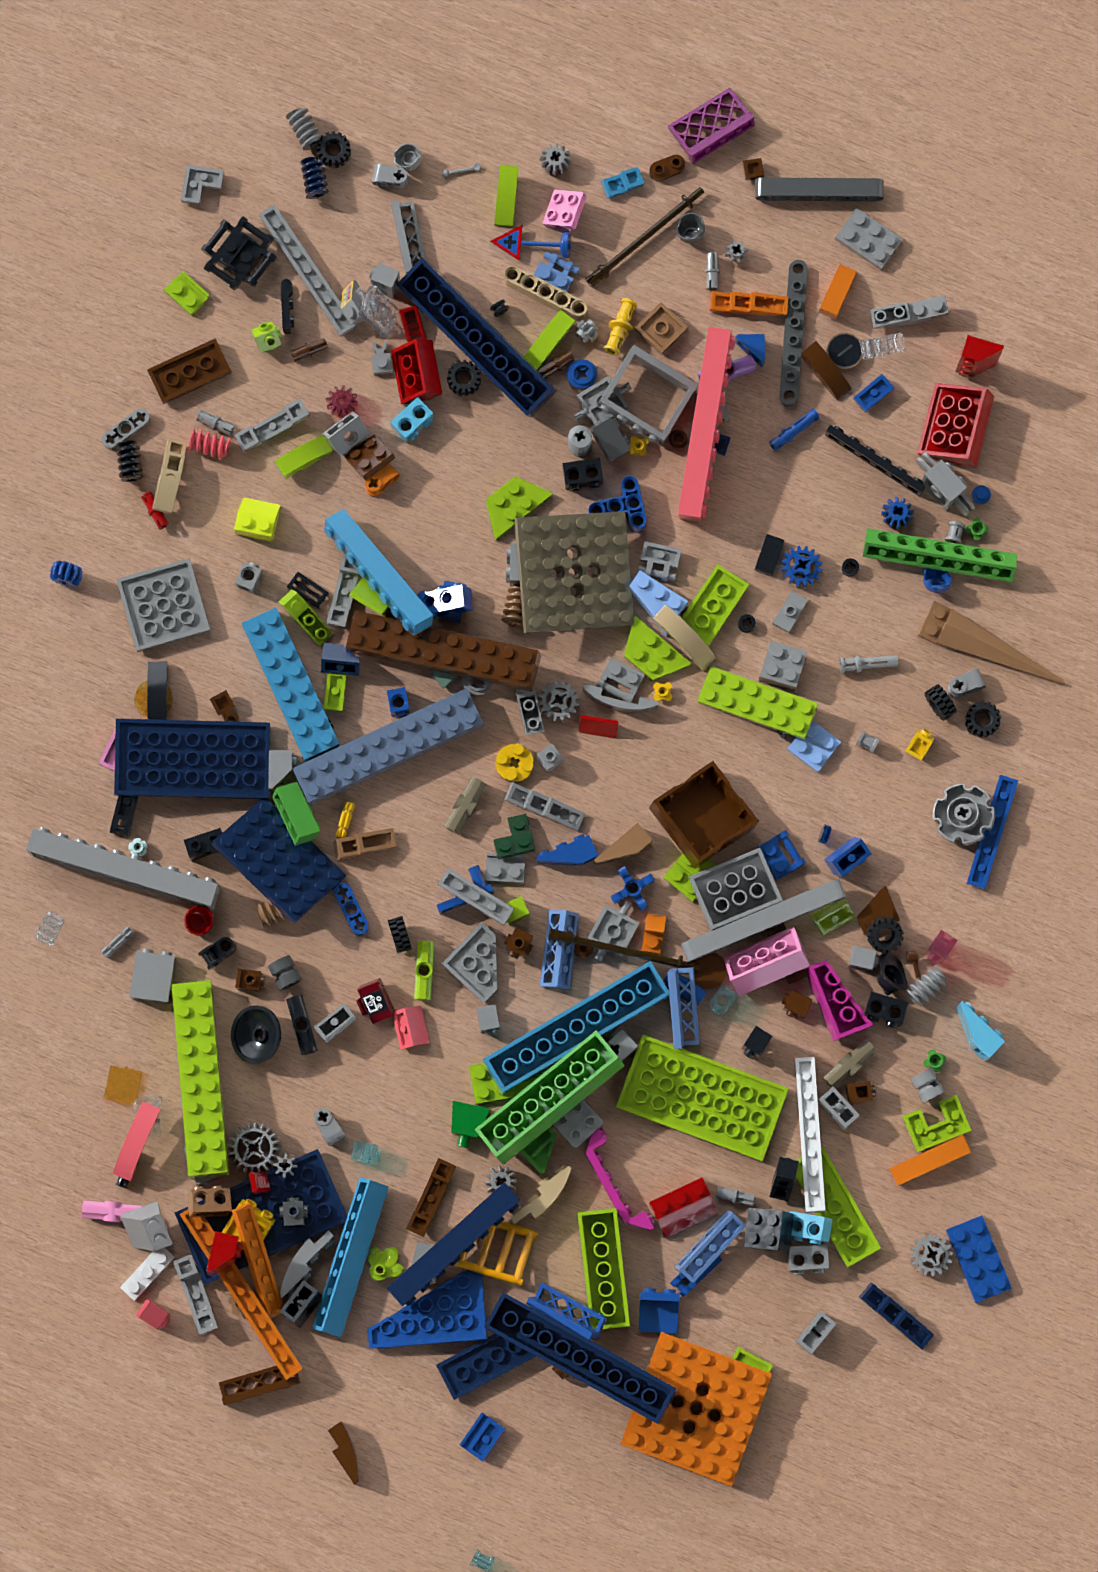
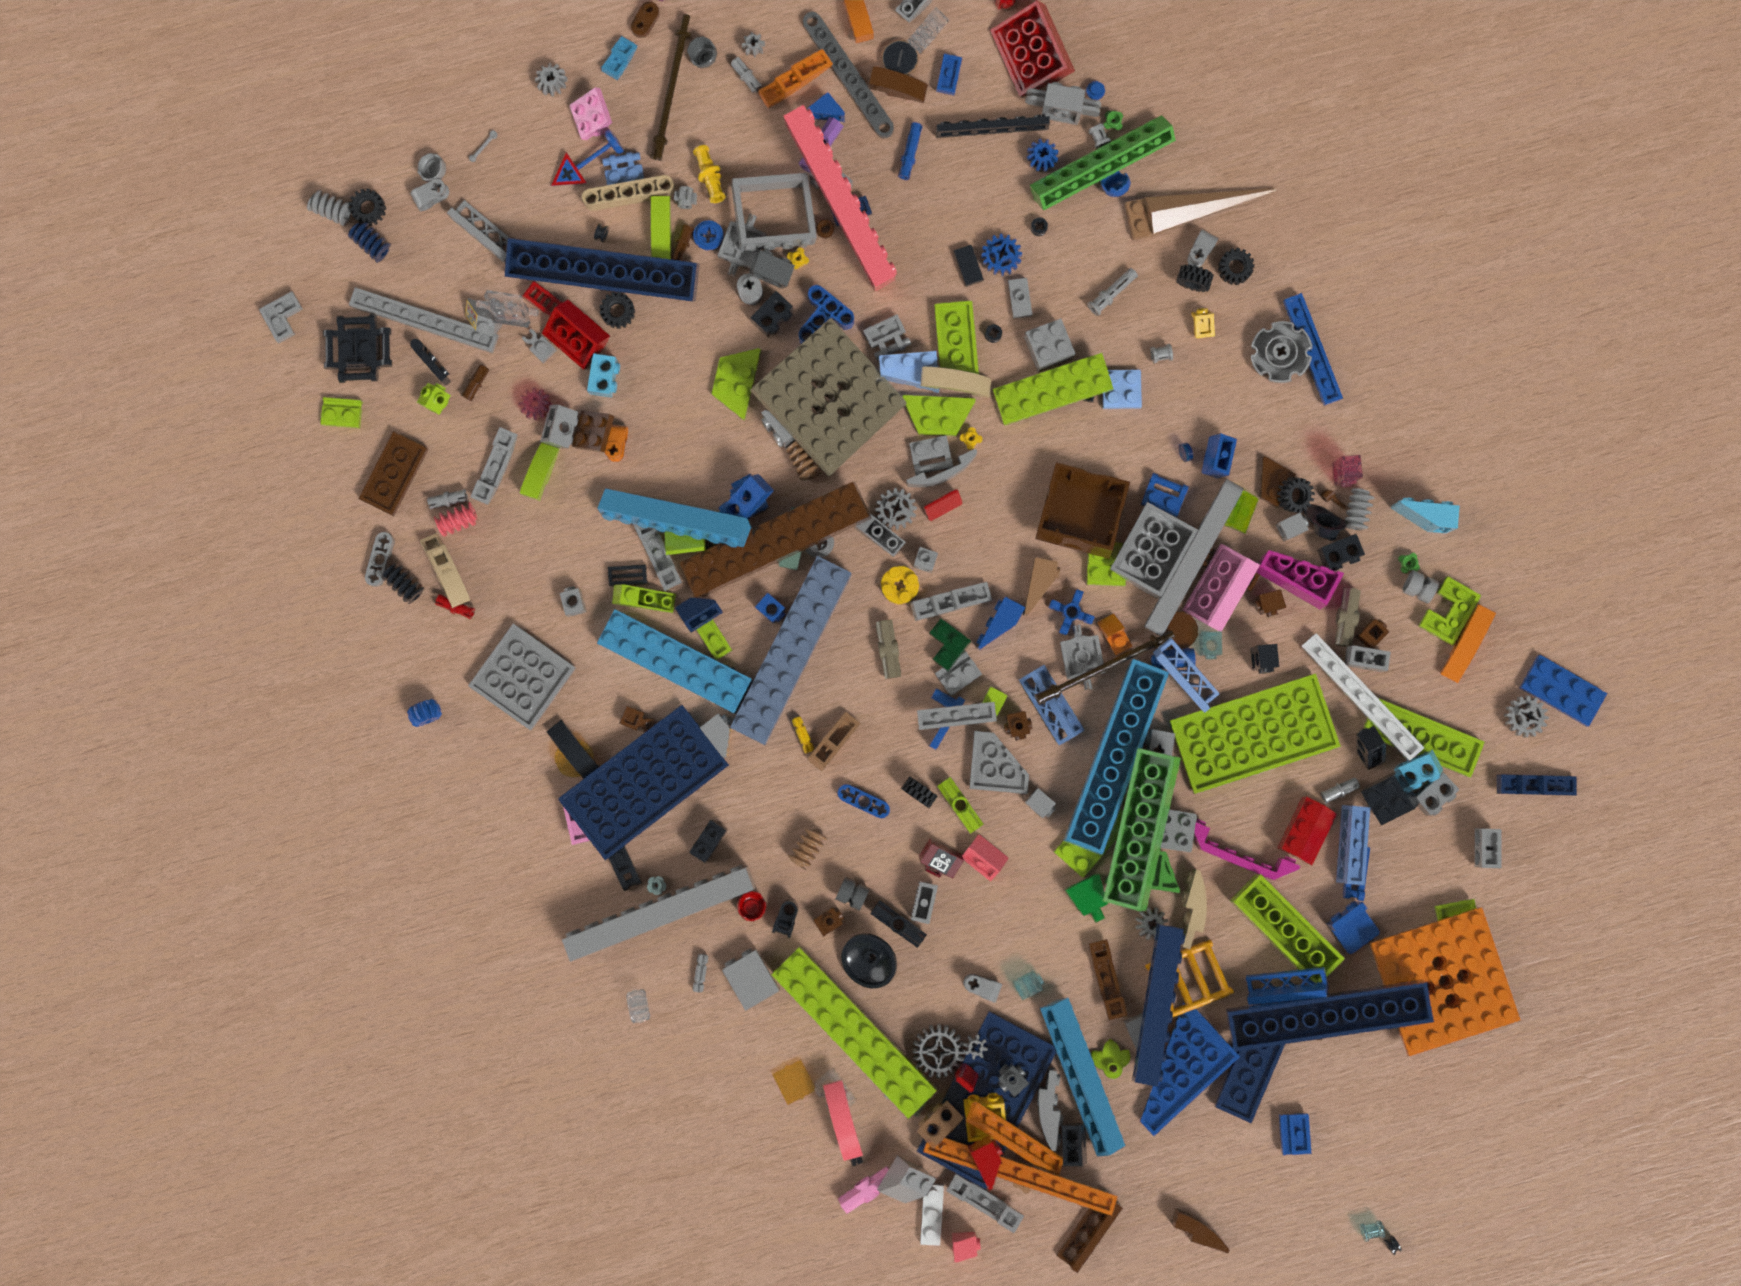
camera: 35 degrees left, 5 degrees up
(257, 519) = (542, 550): neon yellow slope -> none
(266, 856) = (777, 808): dark blue plate -> none
(296, 813) = (761, 760): bright green brick -> none
(385, 279) = (492, 278): light grey brick -> none
(506, 195) = (535, 138): lime slope -> none
(582, 954) = (1074, 694): reddish brown plate -> none
(661, 328) = (742, 150): medium nougat plate -> none

